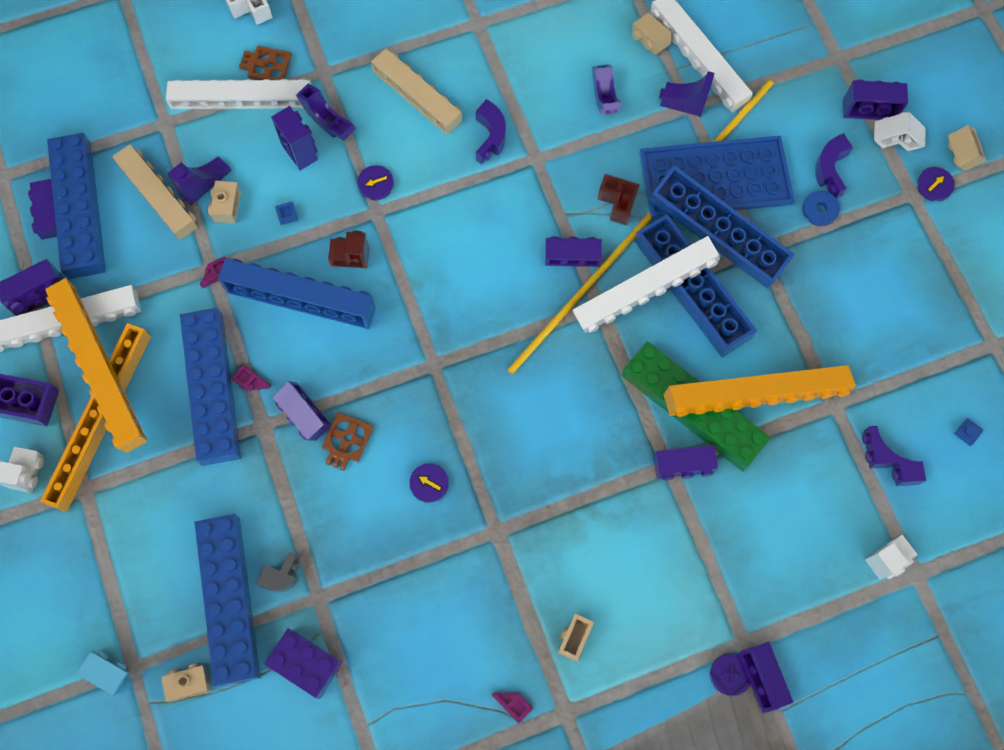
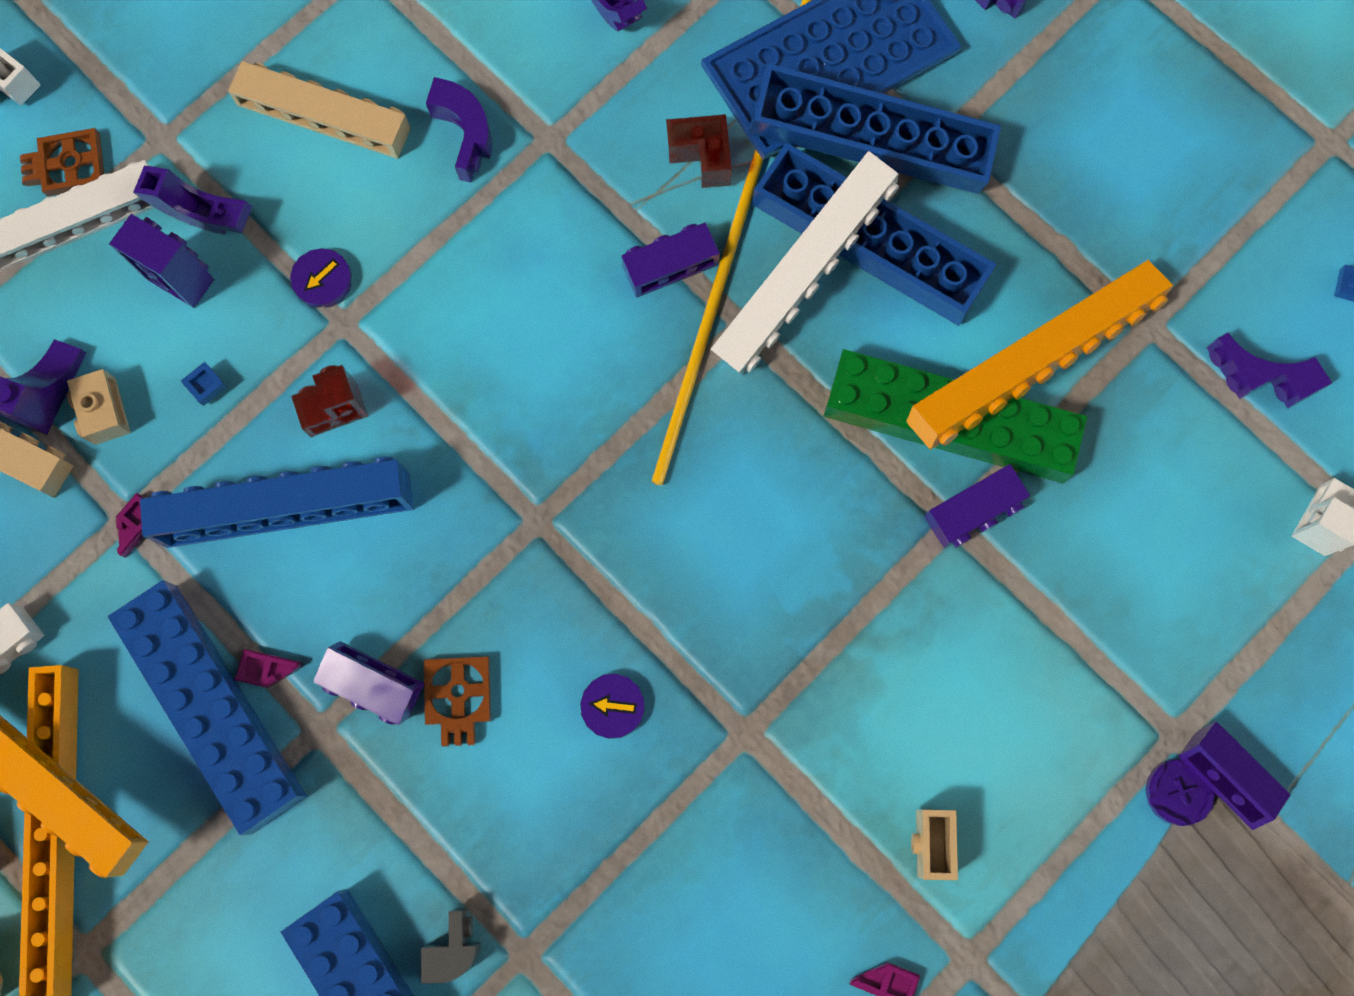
camera: 20 degrees left, 5 degrees up
(824, 199) = (1005, 26): blue tile -> none

